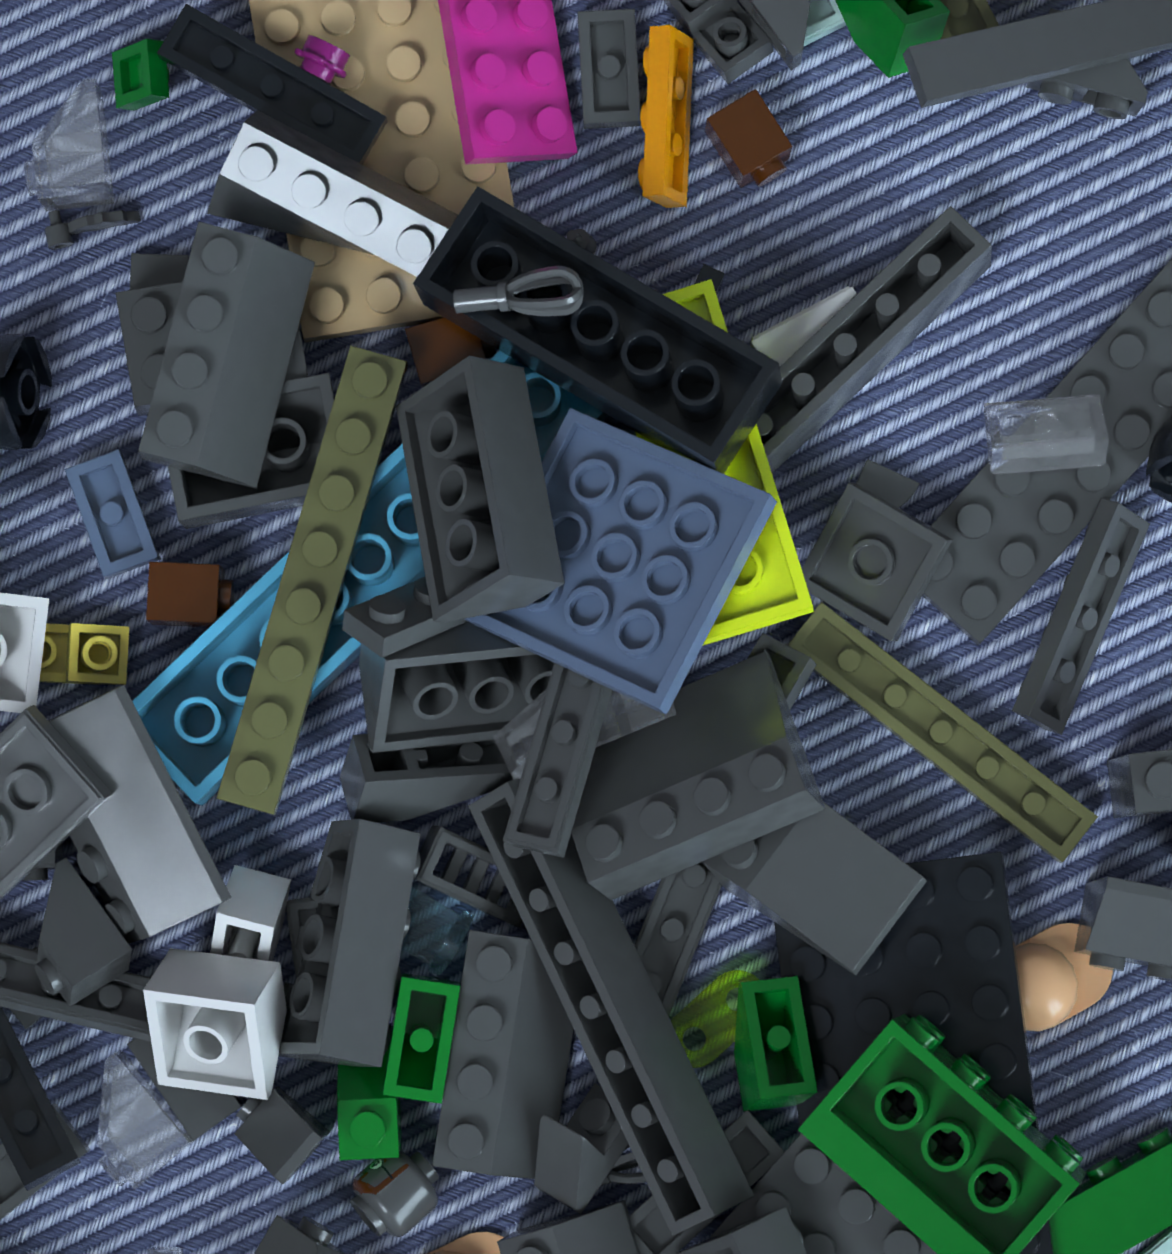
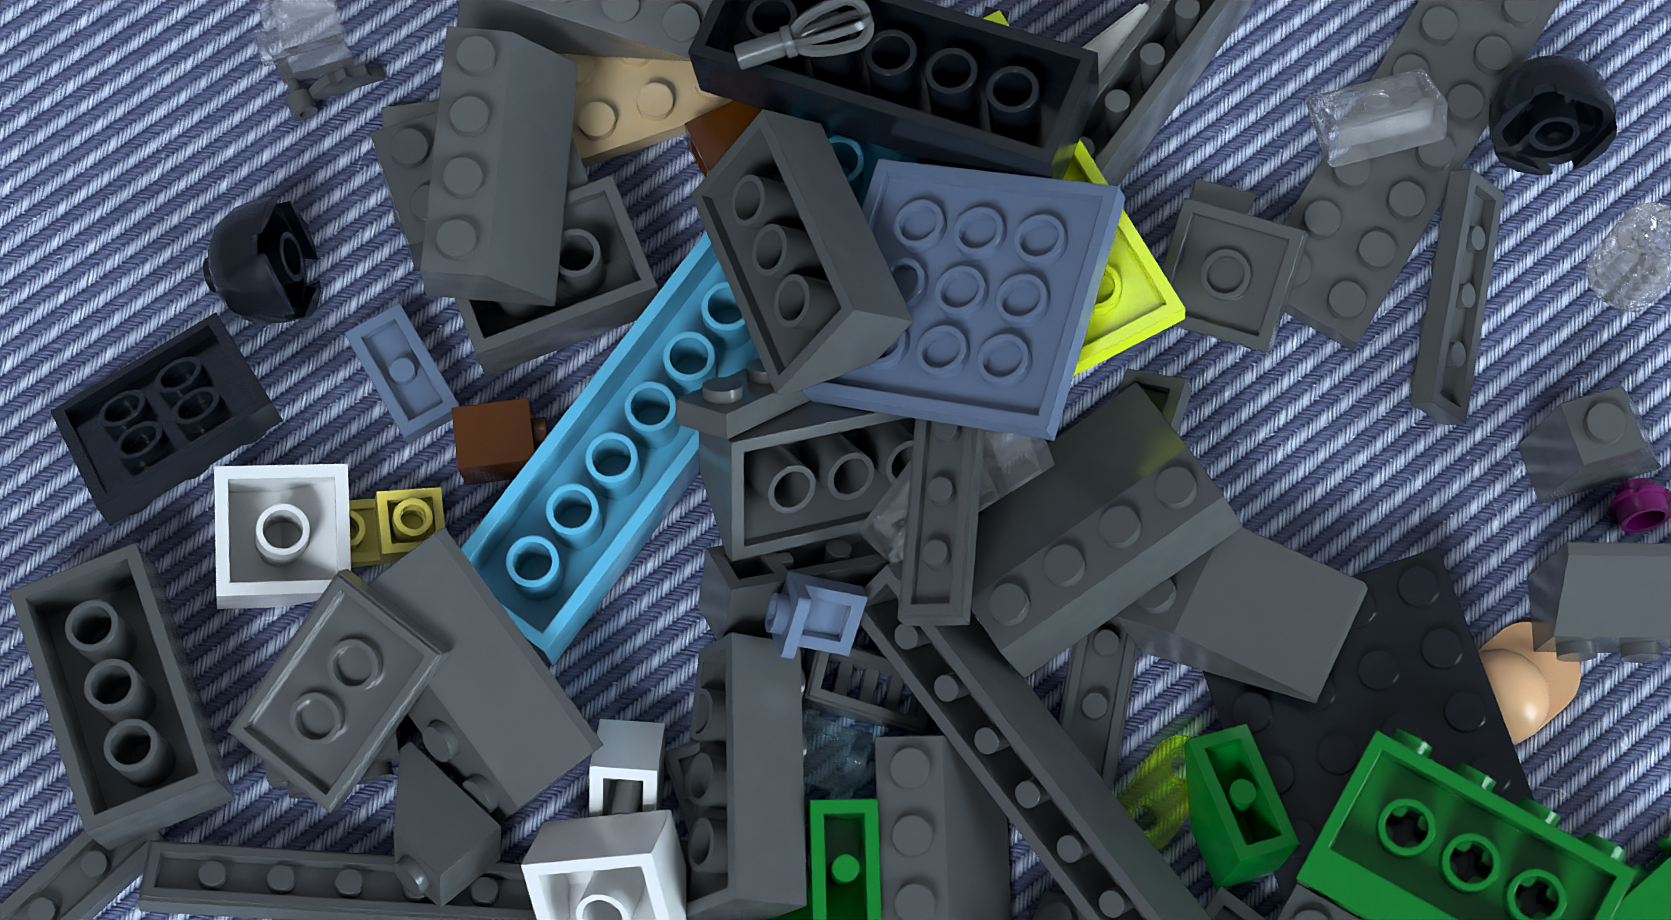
camera: 10 degrees left, 10 degrees down
(312, 580) = (632, 395): olive plate -> none
(436, 813) = (814, 615): none -> sand blue bracket
(943, 734) = (1345, 445): olive plate -> none

